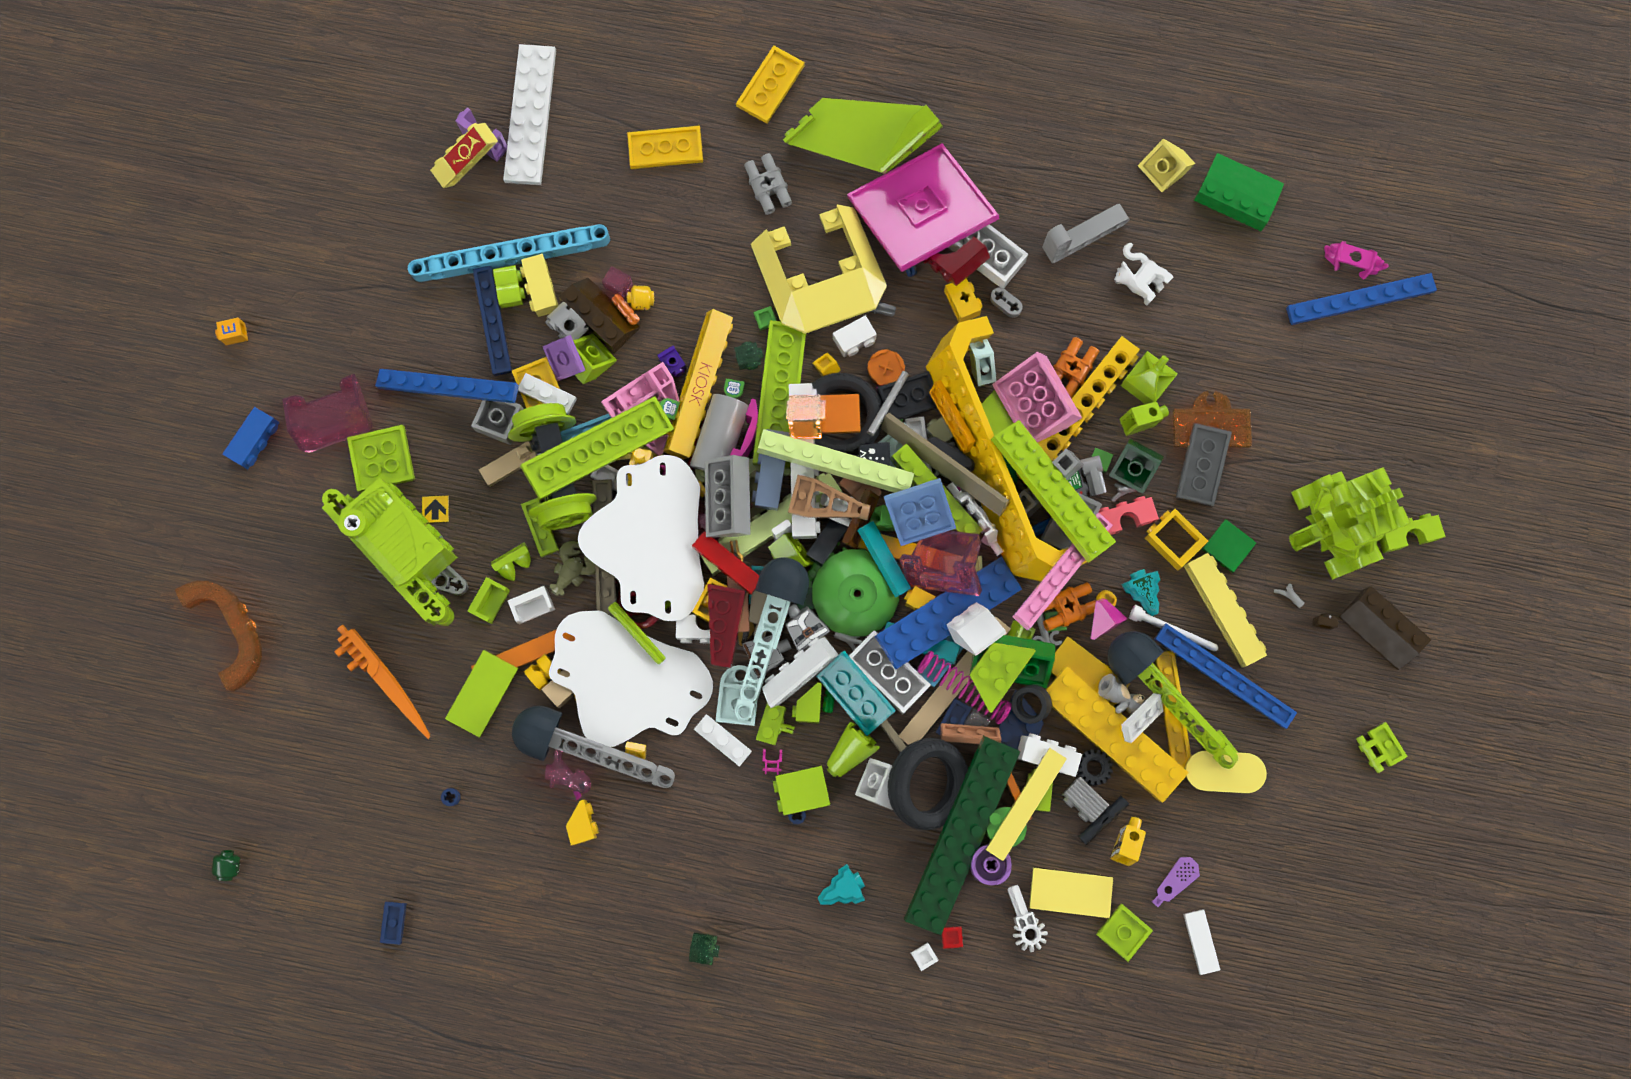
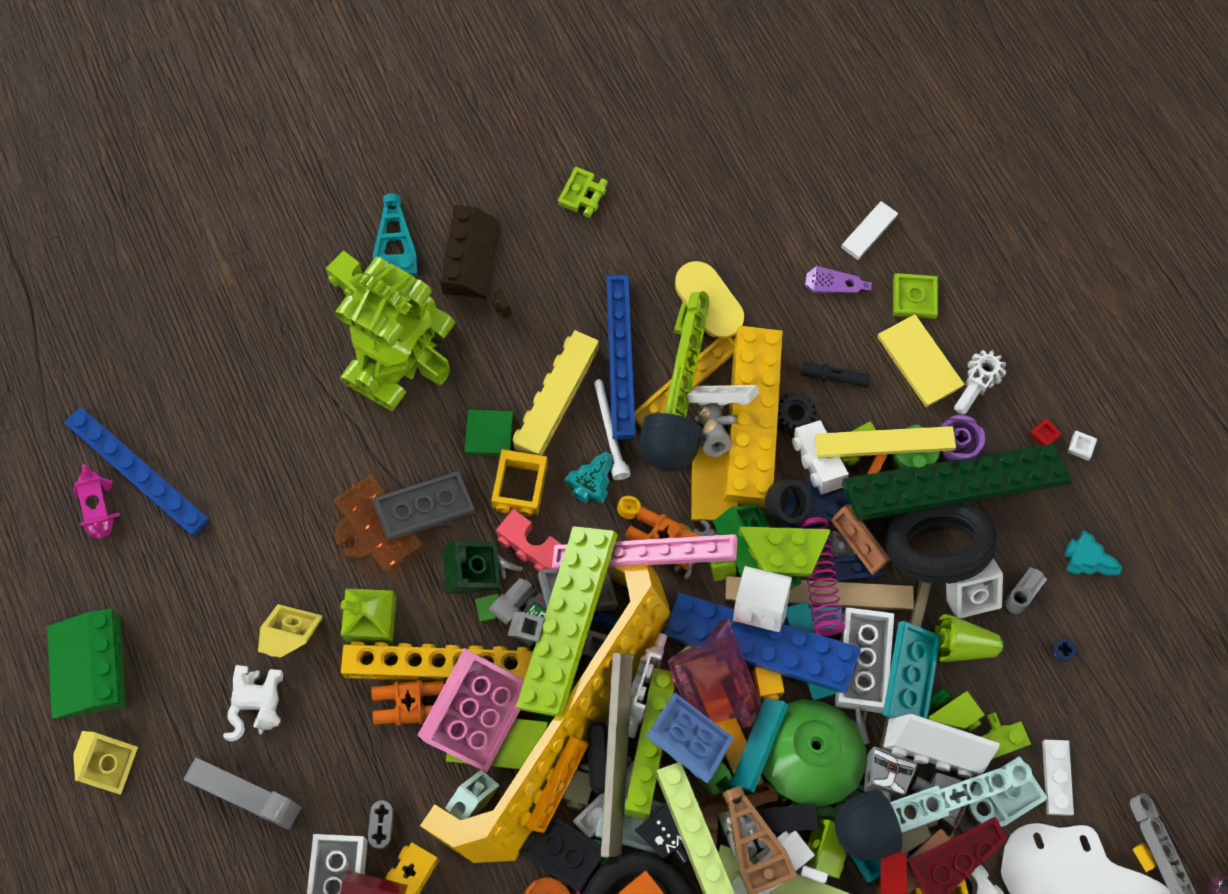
camera: 130 degrees left, 10 degrees down
(772, 761) = (1041, 718): dark pink piece -> none
(801, 790) = (1041, 660): lime panel -> none
(854, 824) = (1025, 590): none -> light grey piece
(887, 404) = (591, 865): light grey piece -> none
(1085, 800) = (831, 400): light grey brick -> none
(1105, 618) = (649, 491): slope -> none
(1127, 850) = (839, 337): yellow torso -> none
(1143, 417) = (416, 593): lime torso -> none
(1176, 323) = (286, 630): none -> light yellow slope
(1291, 595) = (496, 349): light grey bar -> none
(1410, 569) = (393, 212): none -> teal plate

